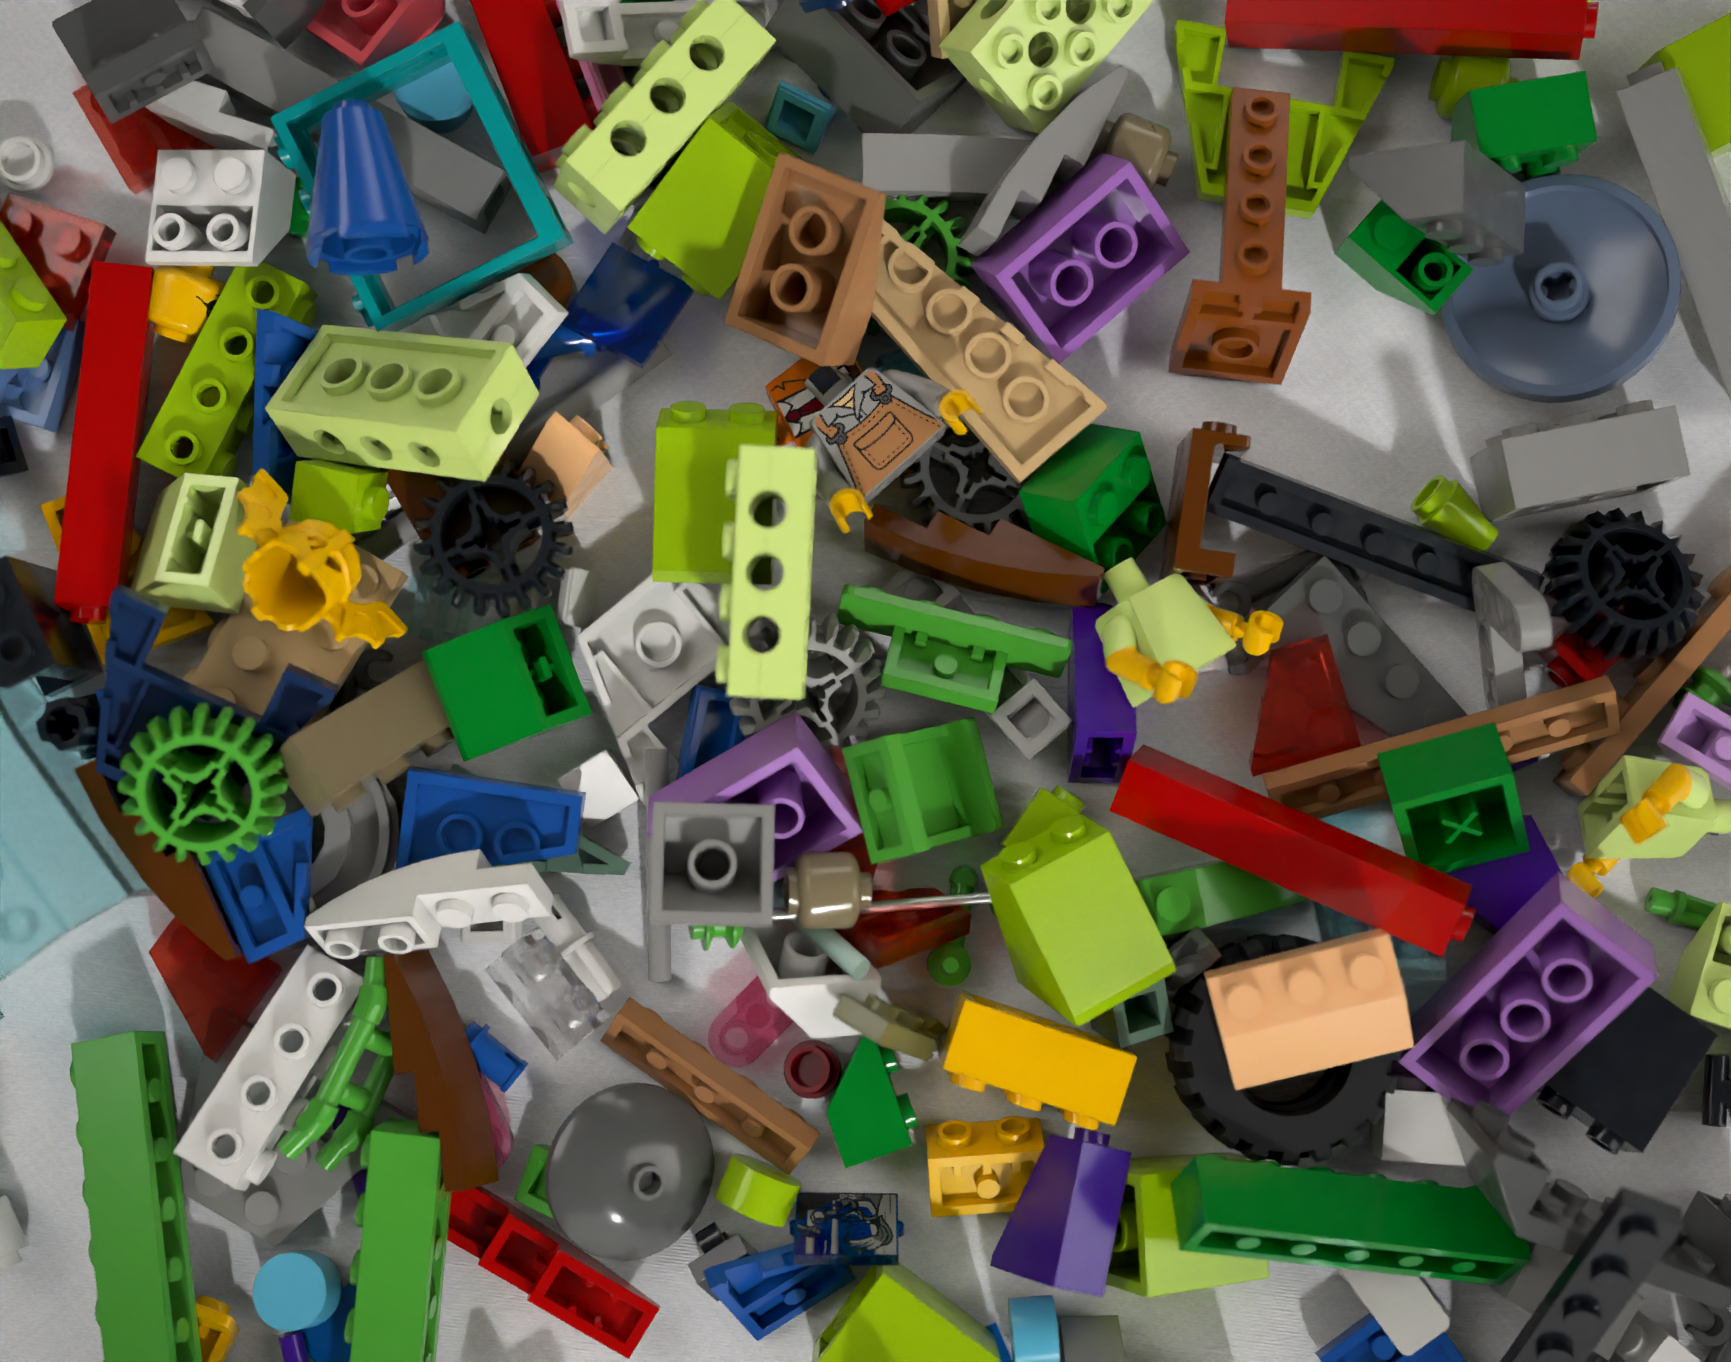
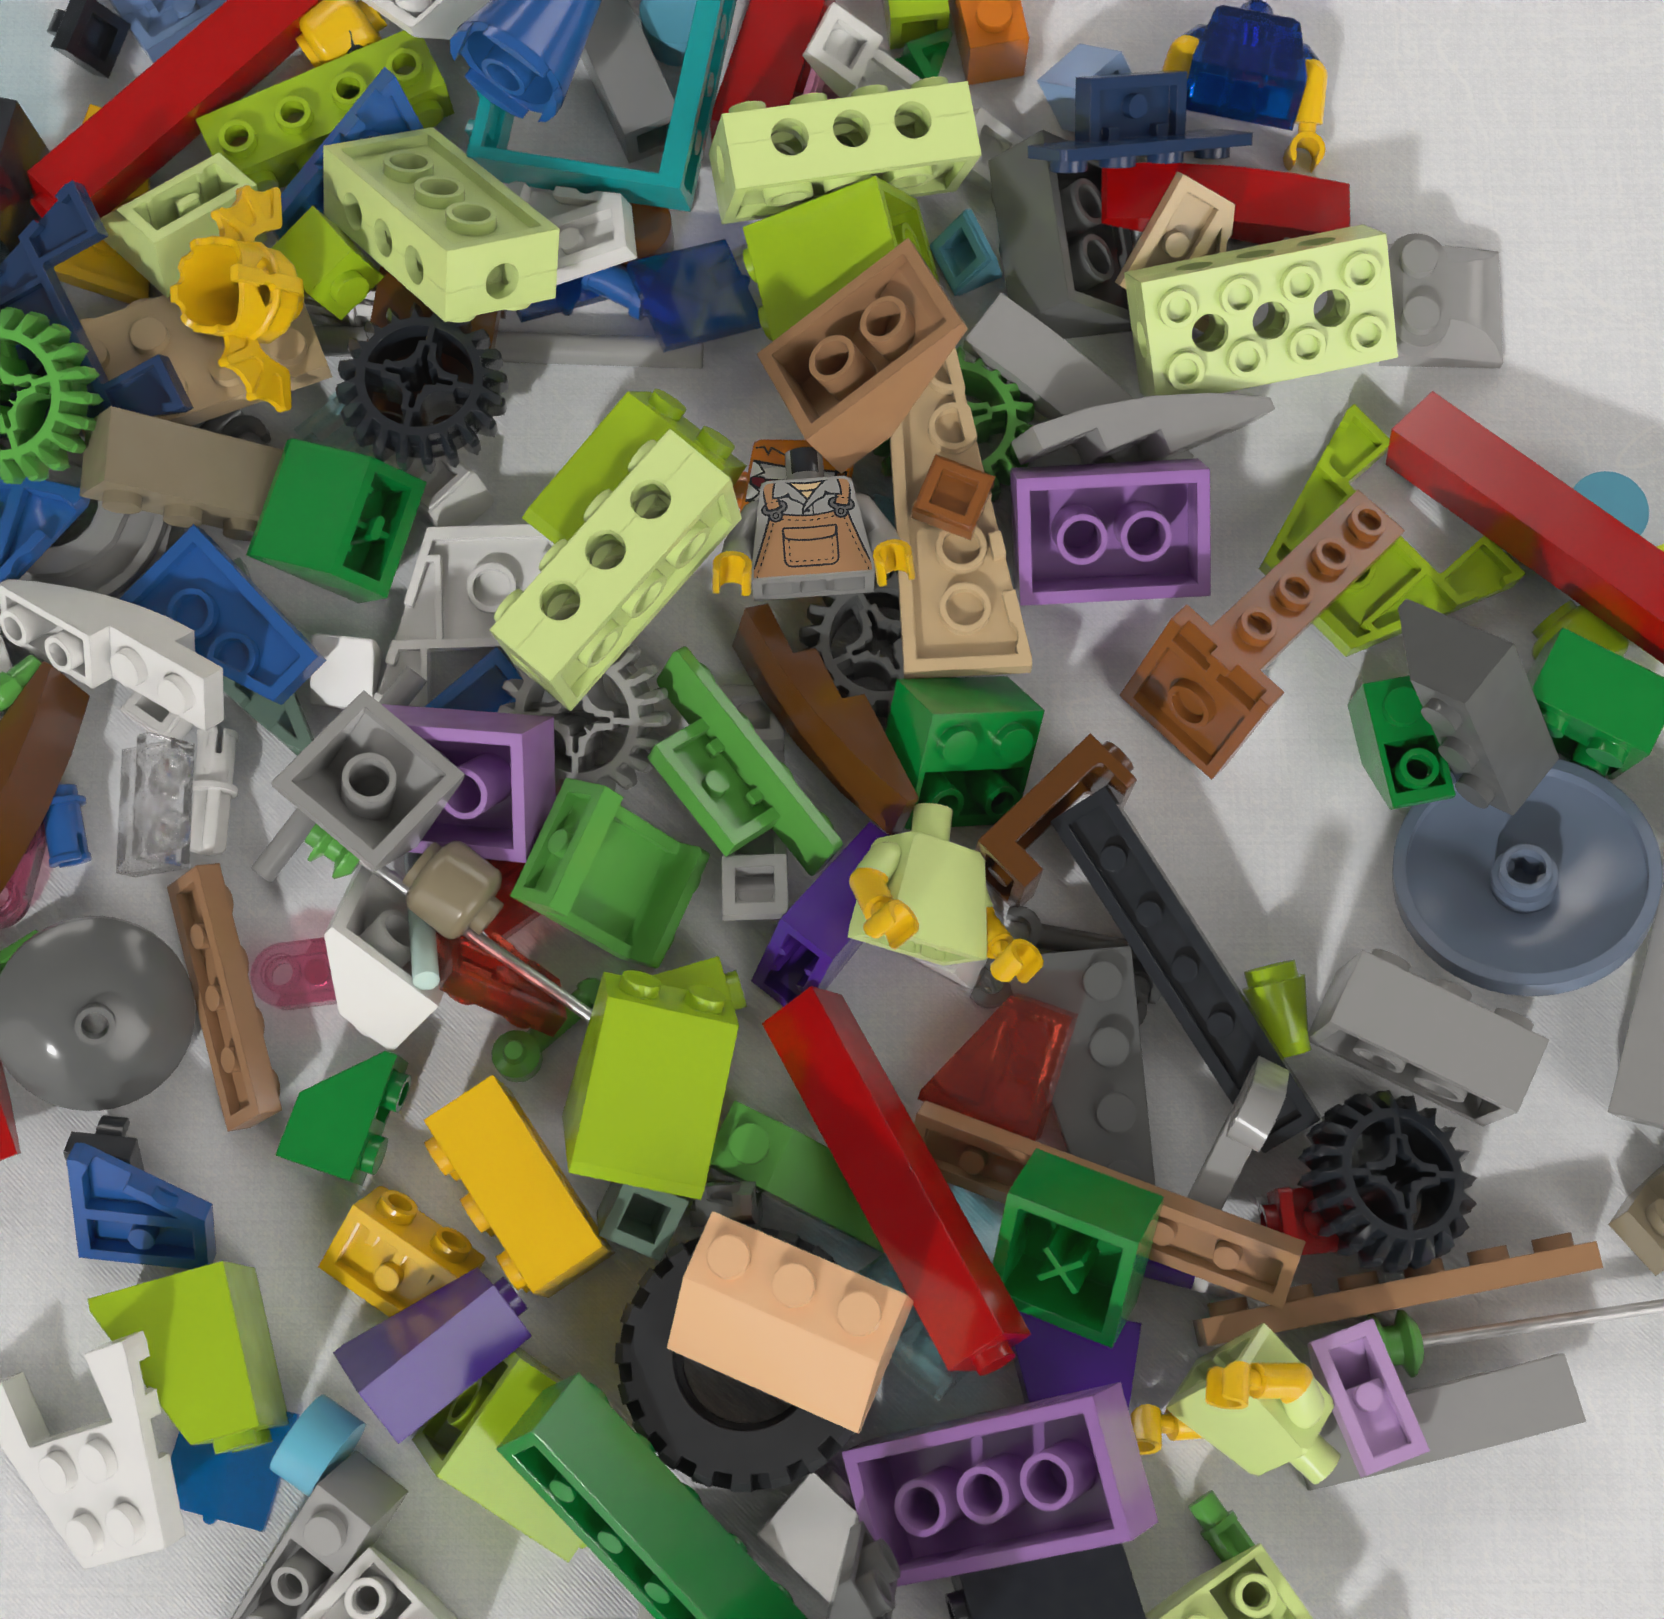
camera: 40 degrees right, 10 degrees down
(570, 458) = (541, 381): light nougat slope -> none
(758, 1190) = (187, 1119): lime piece -> none
(812, 1069) = (322, 1051): dark red plate -> none
(846, 1229) = (233, 1213): piece -> none
(891, 1025) = (416, 1063): olive hinge -> none
(956, 323) = (953, 497): none -> dark orange tile
(1140, 143) = (1237, 487): dark tan head -> none

